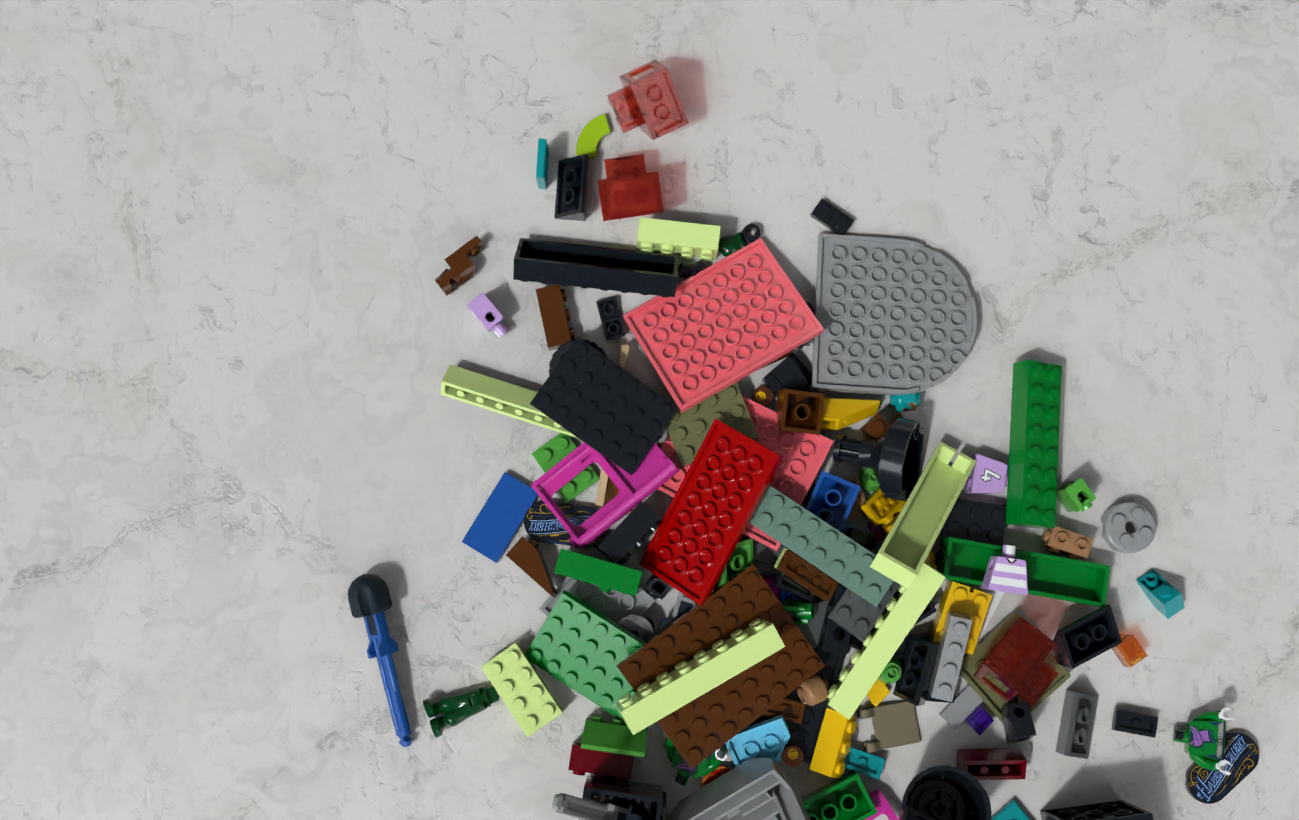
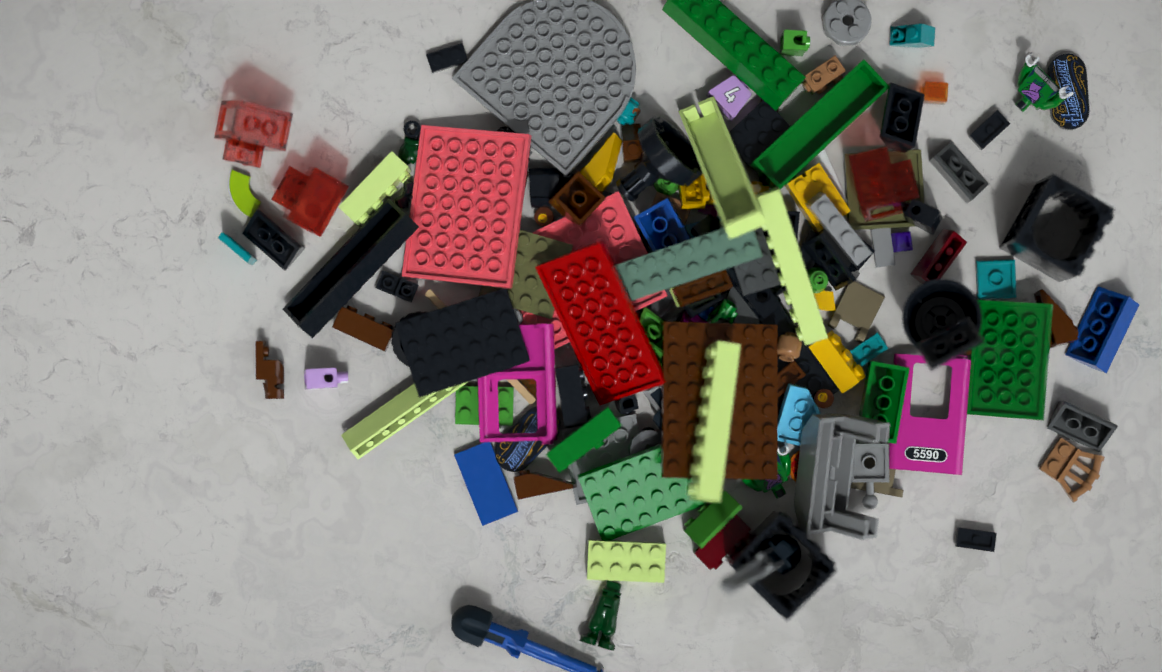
camera: 55 degrees left, 5 degrees up
(1006, 573) = (810, 140): lavender torso -> none

